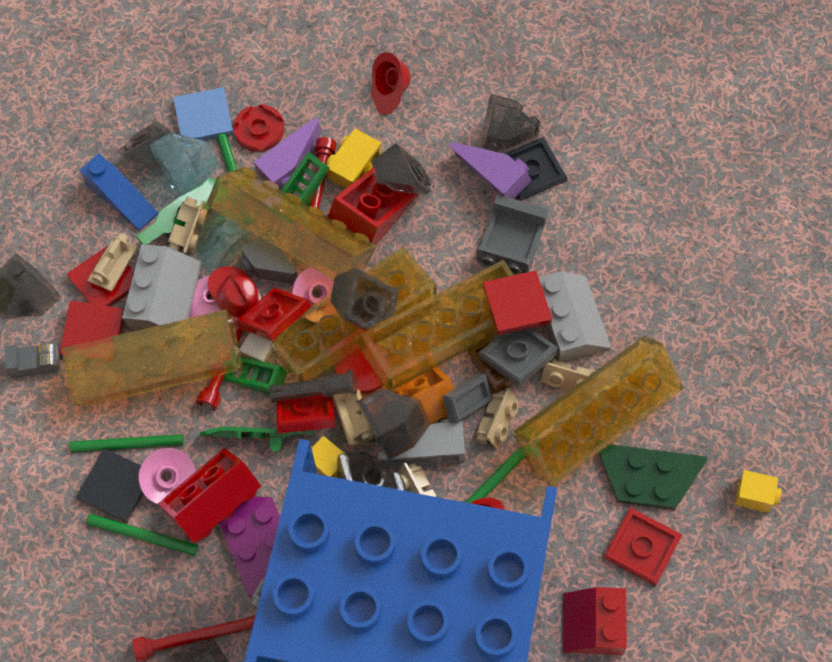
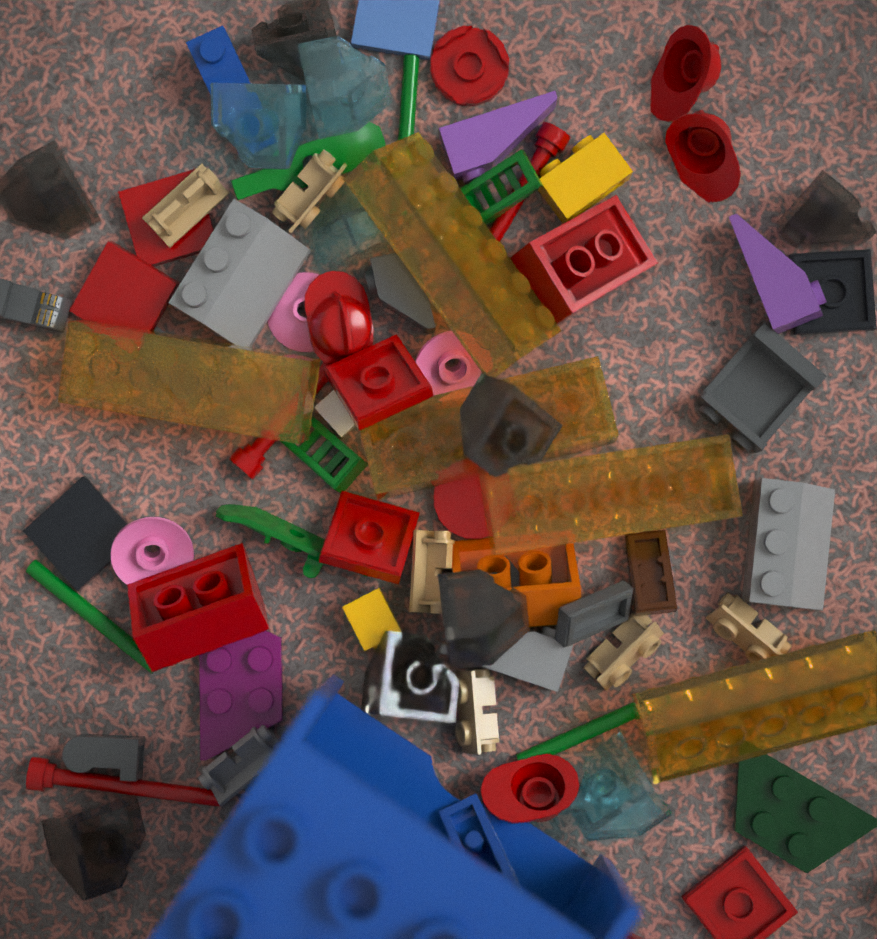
camera: 20 degrees right, 20 degrees up
(126, 443) = (116, 478): green bar -> none
(141, 194) = (260, 120): none -> clear light blue slope
(182, 614) = (106, 751): none -> dark grey leg
(327, 385) = (409, 521): clear smoke pin -> none
(401, 171) = (644, 232): clear smoke slope -> none
(417, 110) = (704, 155): none -> red piece
(517, 302) = (720, 511): red tile -> none
(518, 354) = (691, 576): dark grey tile -> none
(527, 494) = (617, 794): none -> clear light blue slope

